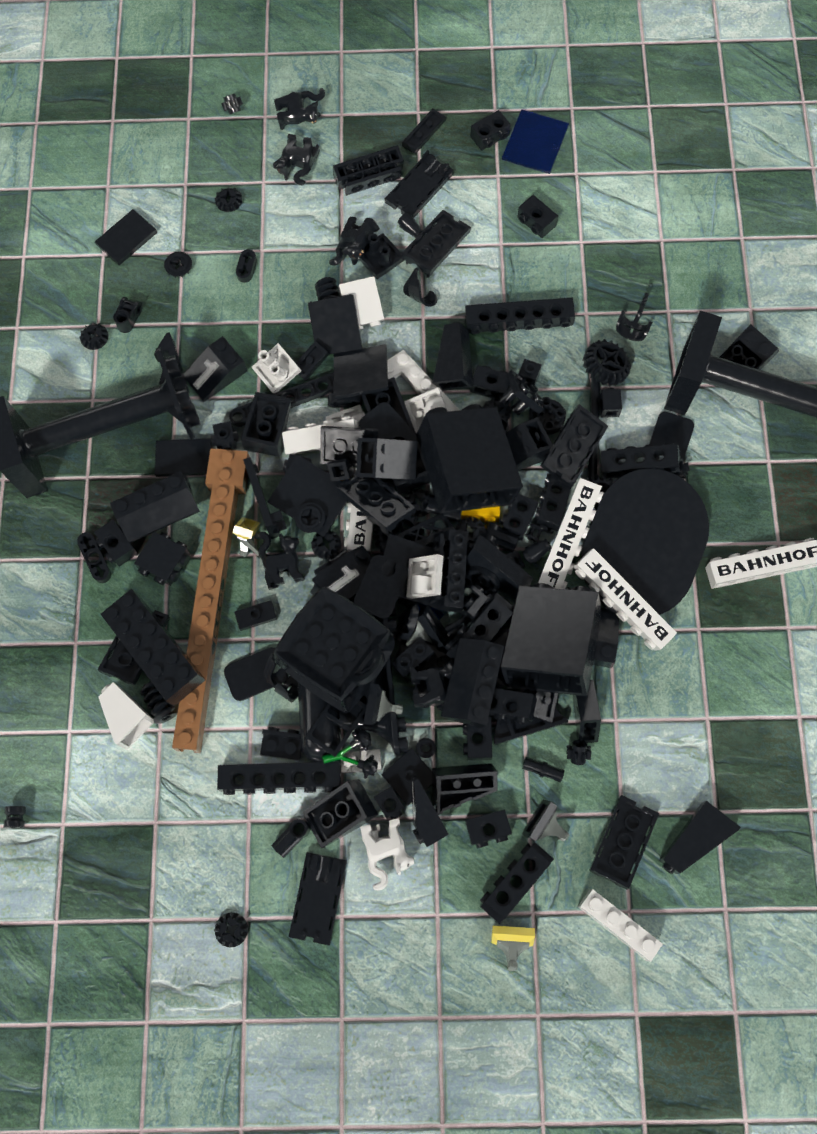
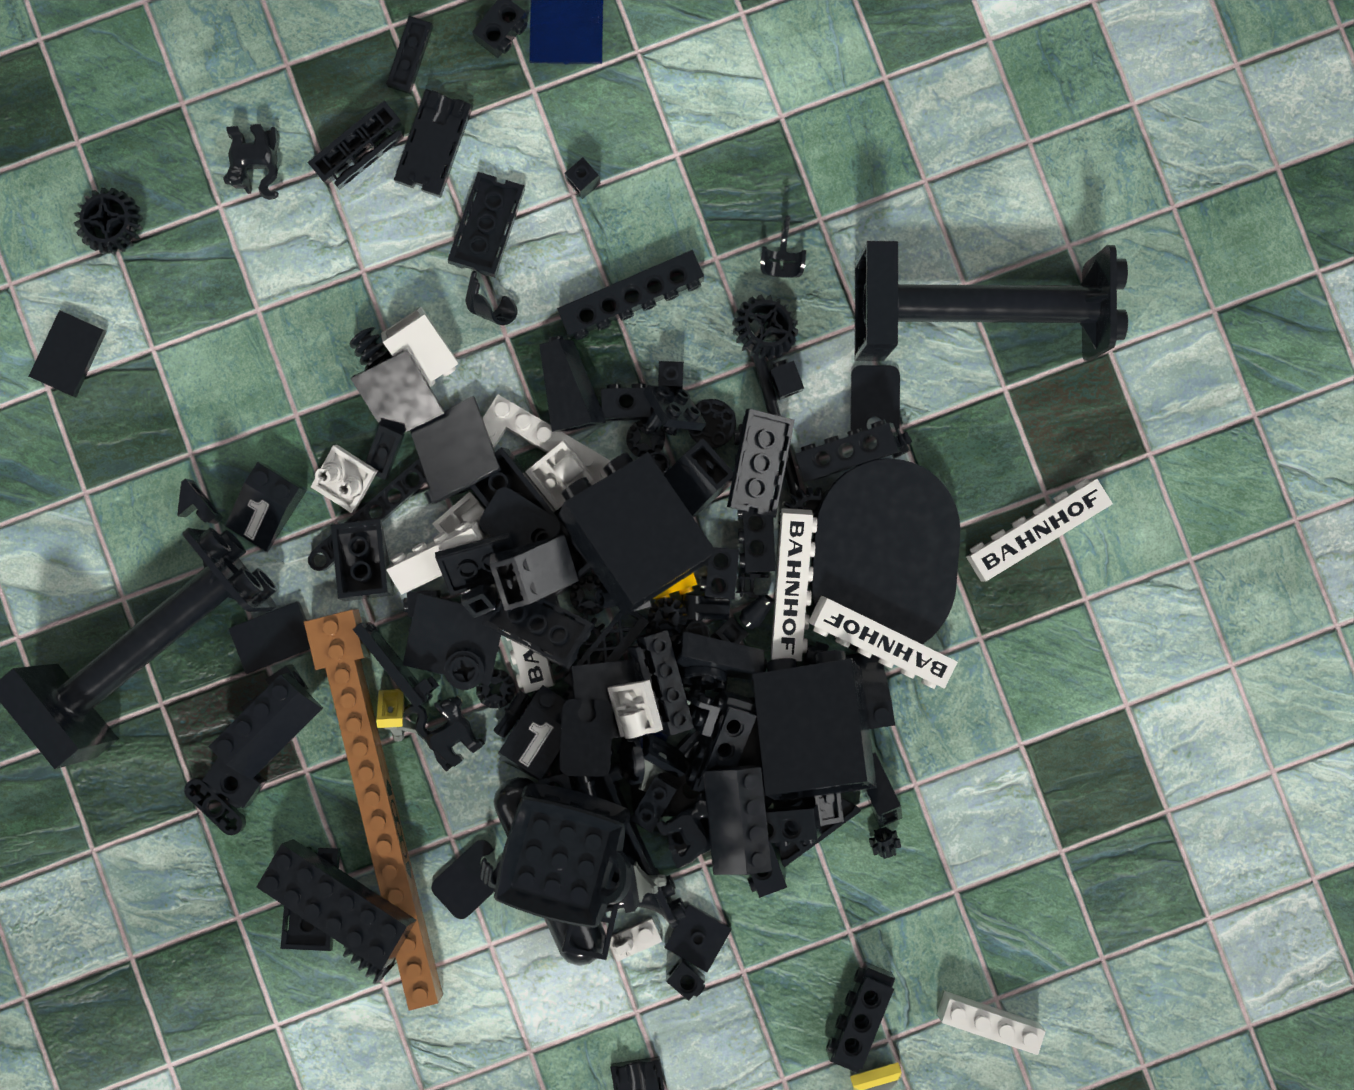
camera: 20 degrees left, 15 degrees up
(95, 342) = (92, 520): black gear -> none
(124, 716) = (334, 990): white slope -> none
(128, 312) = (114, 462): black piece -> none
(162, 559) = (301, 782): black brick -> none
(174, 259) = (146, 364): black gear -> none
(190, 170) = (102, 205): none -> black gear
(224, 436) = (306, 593): black brick -> none
(228, 773) = (491, 1025): black brick -> none
(232, 103) = (129, 103): black gear -> none
(235, 200) = (193, 253): black gear -> none
(242, 265) = (252, 342): black beam -> none
(255, 615) = (443, 808): black plate -> none
(281, 744) = (533, 953): black bracket -> none
(289, 838) = (586, 1057): black piece -> none
(296, 112) = (218, 76): black animal -> none
(340, 812) = (633, 1009): black slope -> none
(354, 240) = (376, 254): black animal -> none
(362, 740) = (630, 930): black plant -> none
(380, 255) = (418, 268): black plate -> none
(384, 847) = (698, 1030): white animal -> none
(409, 224) = (441, 209): black cone -> none
(425, 818) = (740, 990): black slope -> none
(426, 741) = (705, 905): black plate -> none
(461, 784) = (763, 929): black wedge -> none
(497, 820) = (813, 953): black brick -> none
(512, 233) = (582, 178): none -> black brick
(534, 208) = (599, 128): black brick -> none
(543, 769) = (849, 875): black pin -> none
(545, 823) = (871, 939): black piece -> none
(624, 842) = (967, 928): black piece -> none
(698, 837) = (1050, 893): black slope -> none
(751, 349) = (938, 252): black slope -> none

